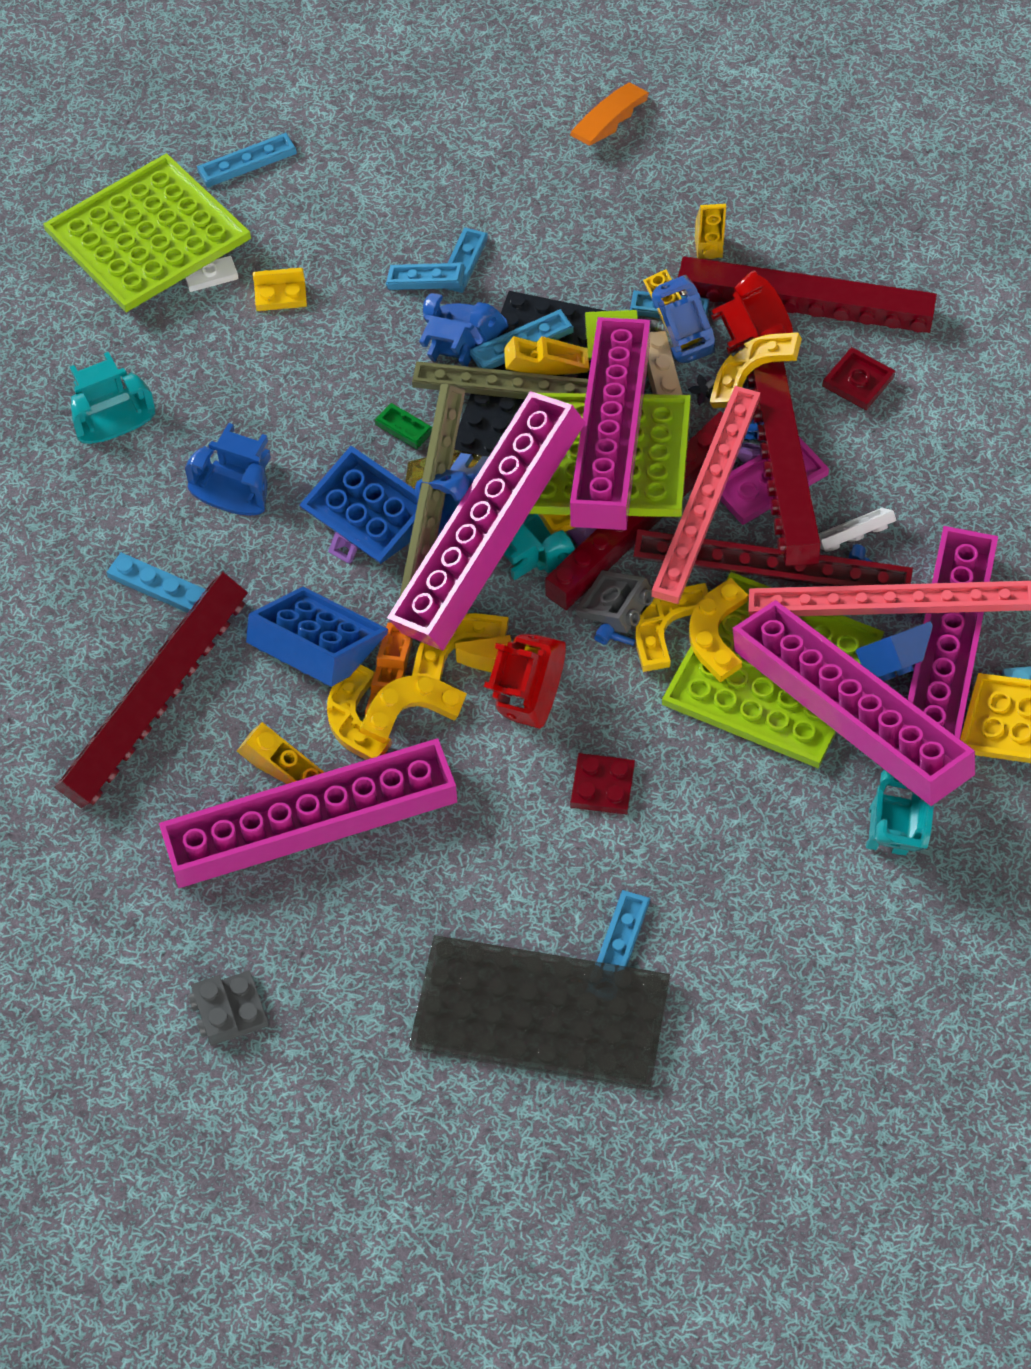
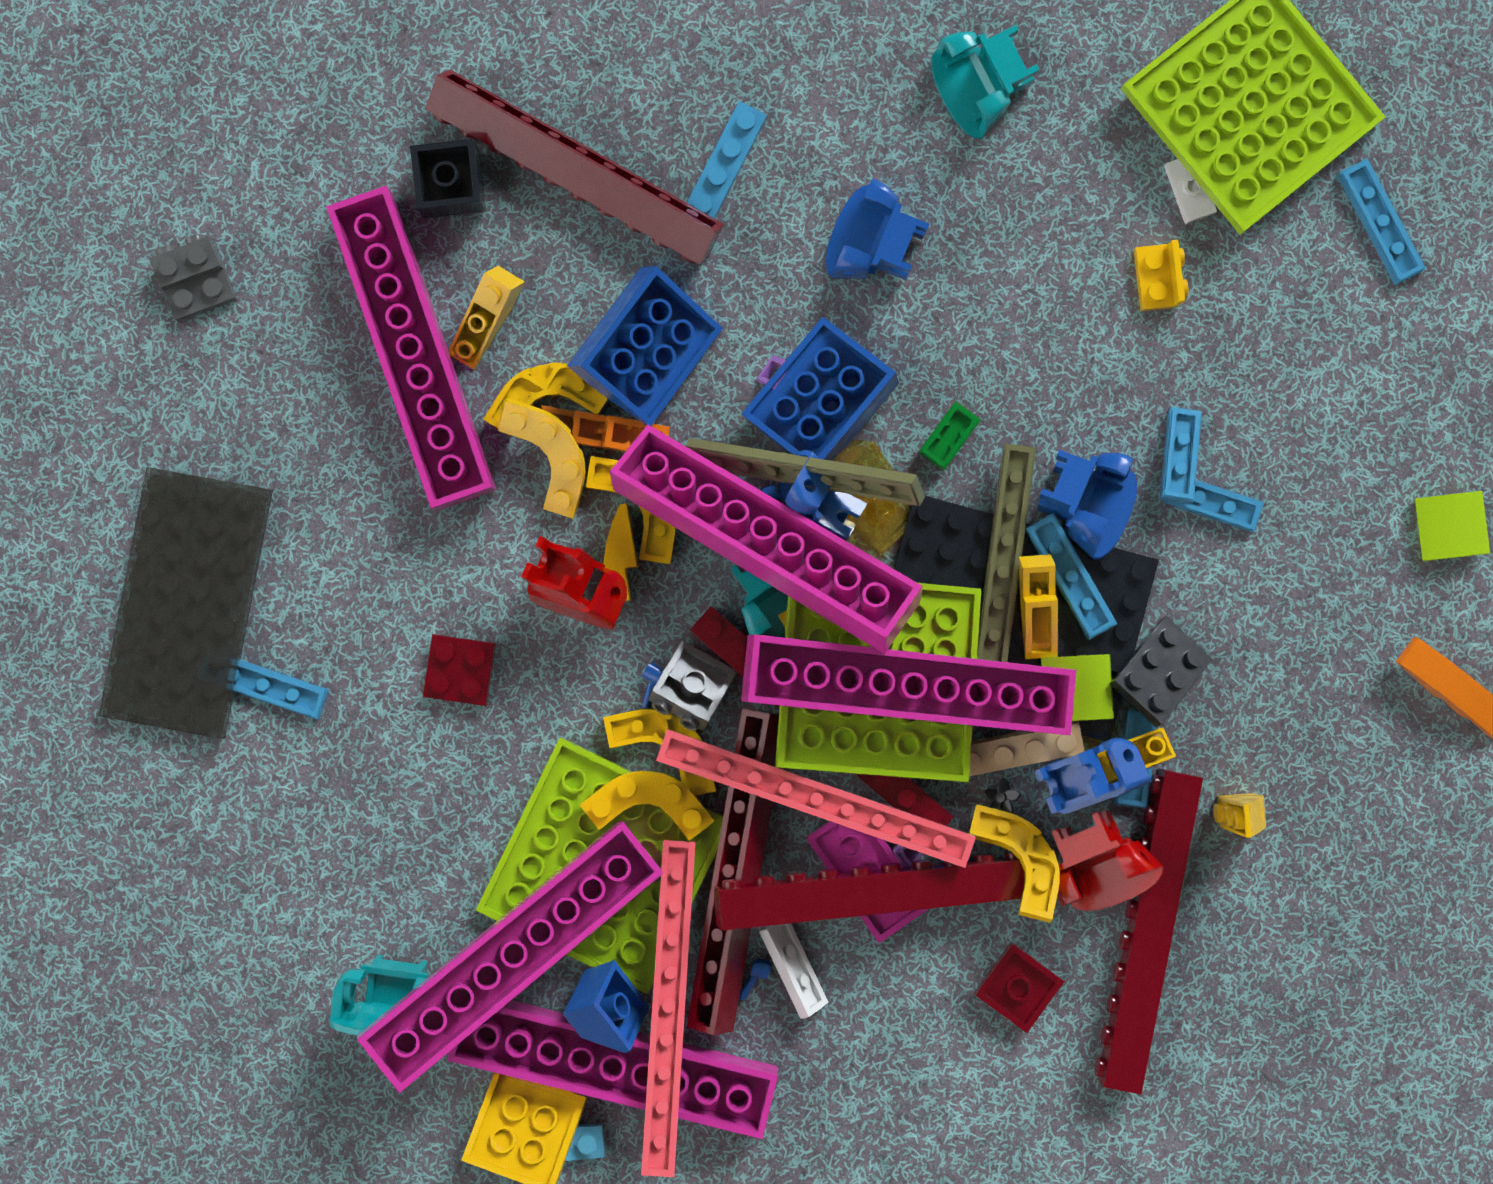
camera: 85 degrees right, 30 degrees up
(154, 784) = (448, 178): none -> black brick
(485, 118) = (1452, 525): none -> lime slope
(598, 284) = (1161, 671): none -> black plate

